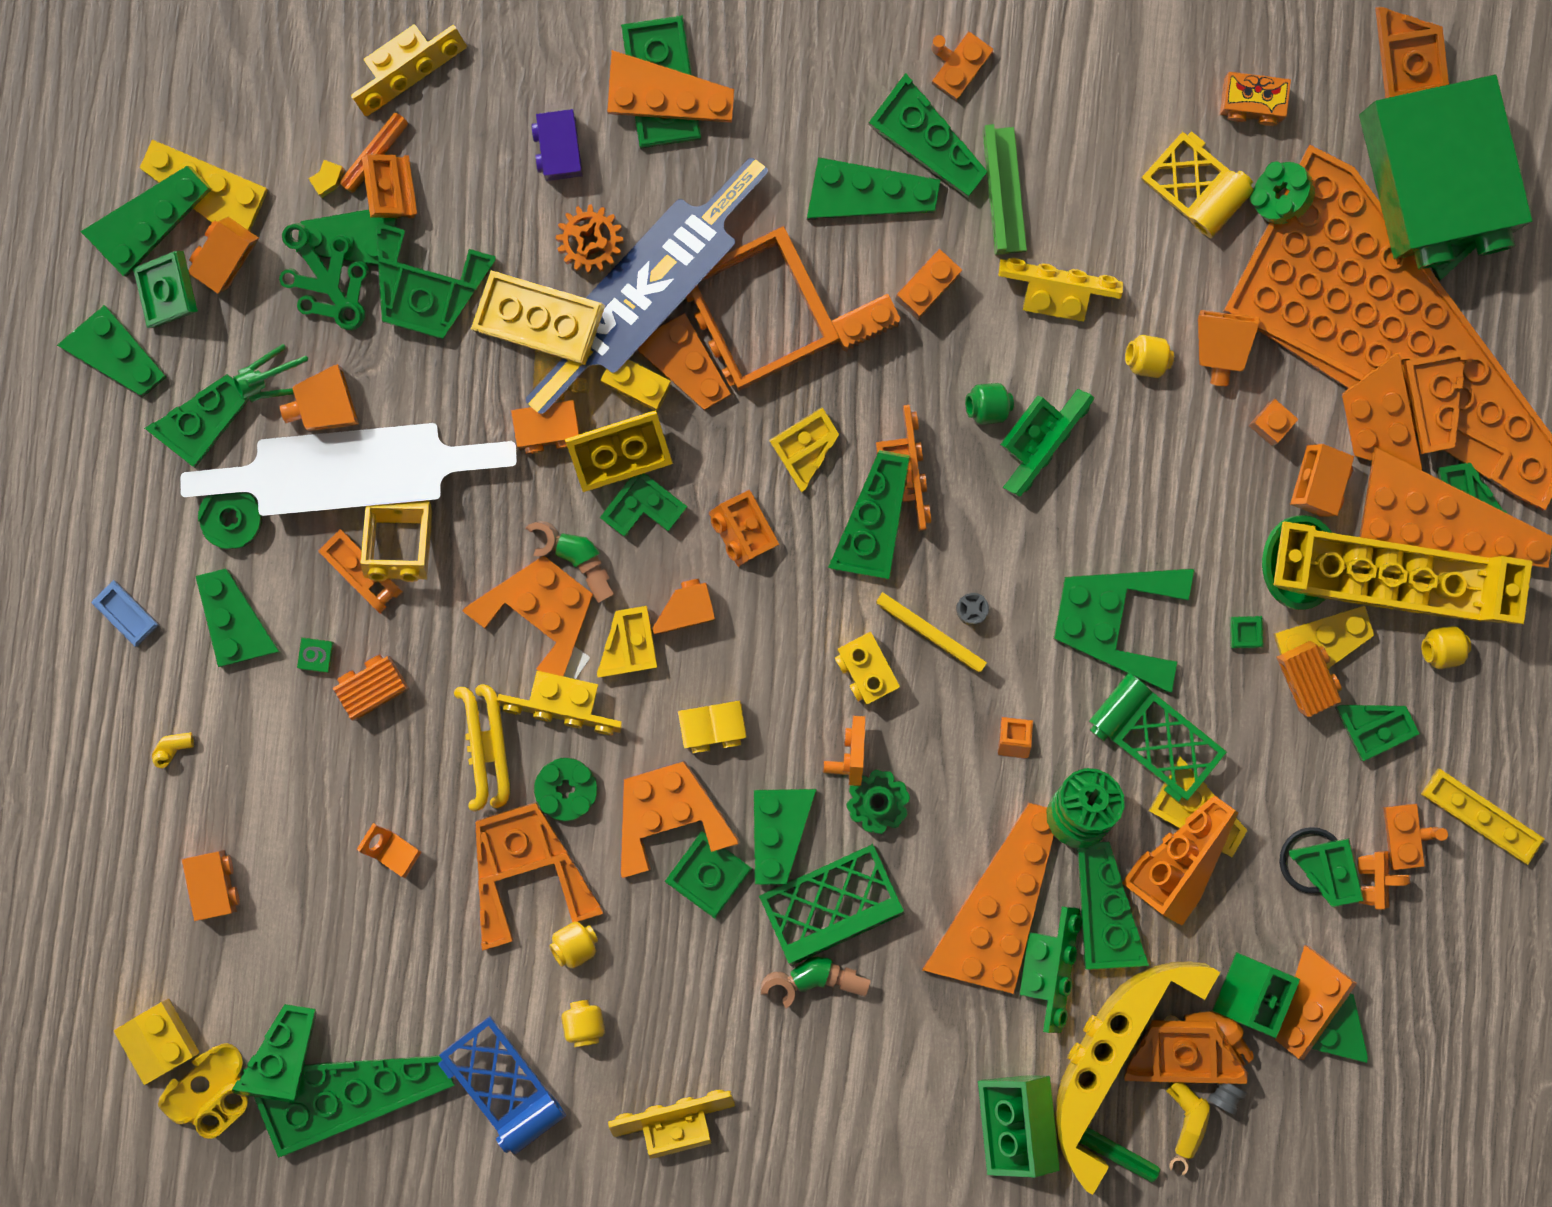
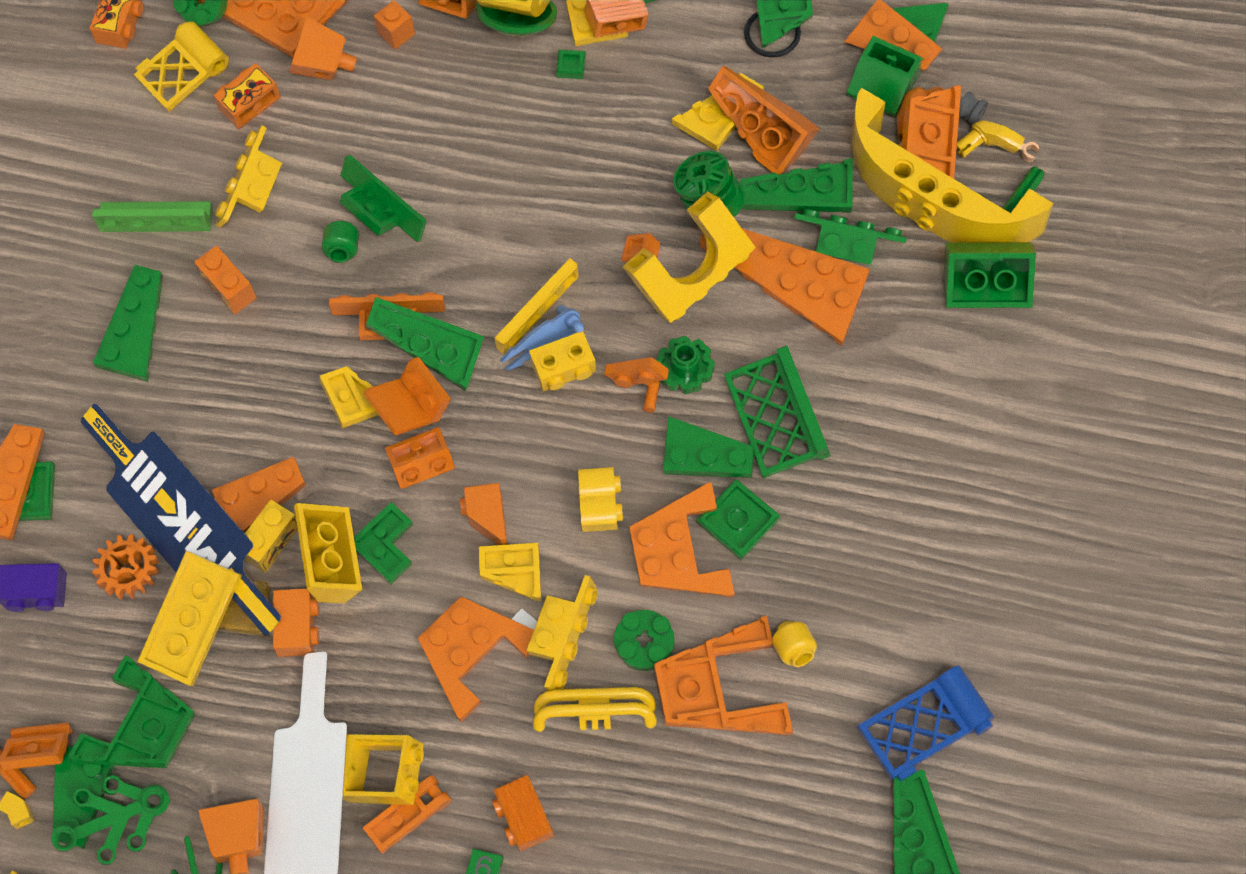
camera: 80 degrees left, 20 degrees down
(390, 850) = (687, 808): orange bracket -> none
(579, 552) = (420, 603): piece -> none
(583, 1024) = (871, 641): yellow head -> none
(674, 1126) = (975, 568): yellow bracket -> none
(717, 344) = (211, 382): orange window -> none
(803, 507) = (409, 401): none -> orange bracket
(812, 974) = (839, 434): nougat piece -> none
(866, 322) = (249, 334): orange brick -> none
(897, 646) = (561, 326): none -> medium blue piece
(922, 133) = (85, 280): green wing -> none
(957, 784) = (725, 249): none -> yellow arch
(959, 65) = (36, 241): orange plate -> none
(975, 605) = (520, 265): dark grey wheel -> none
(1093, 612) = (540, 179): green wing -> none
(1122, 712) = (629, 161): green piece -> none
(1149, 356) = (321, 113): yellow head -> none
(1164, 266) = (246, 96): none -> orange brick

